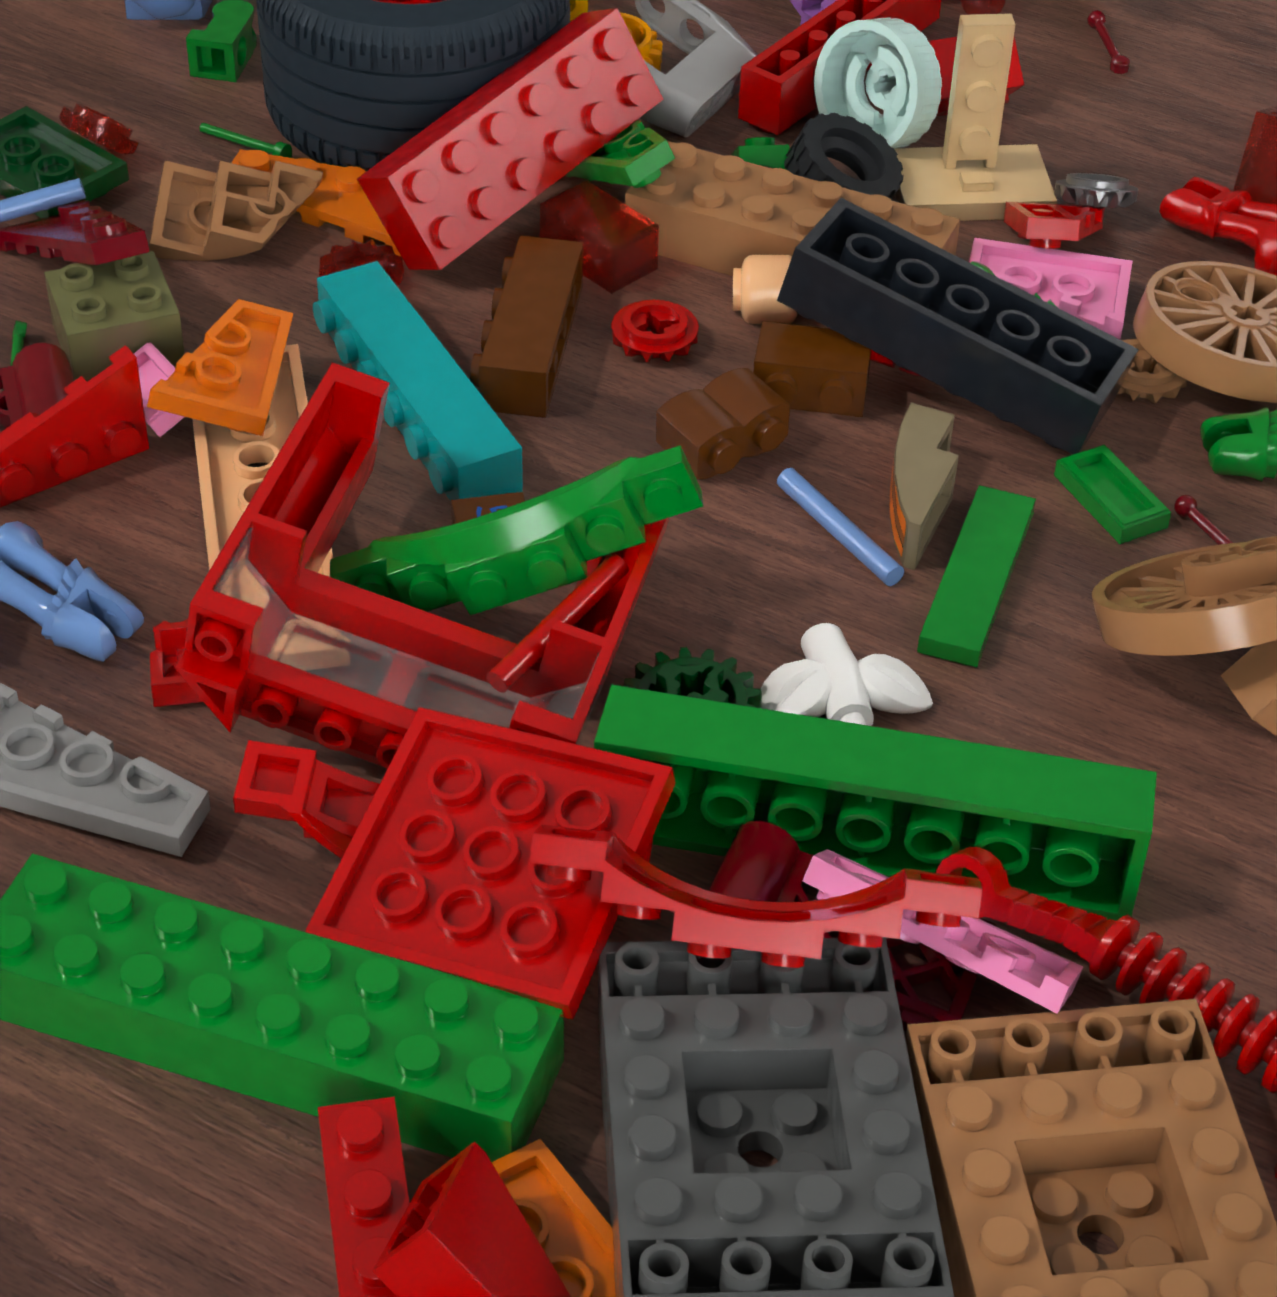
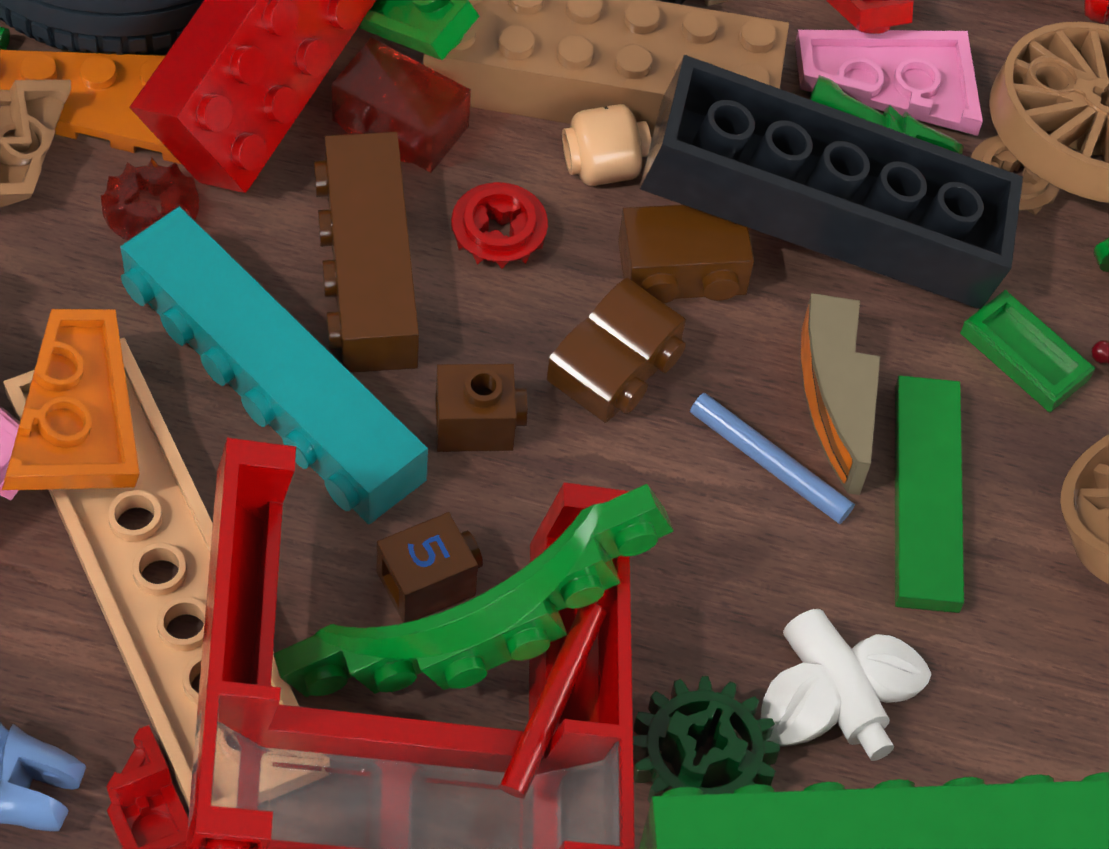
camera: 20 degrees left, 15 degrees up
(580, 438) = (478, 407): none -> reddish brown brick

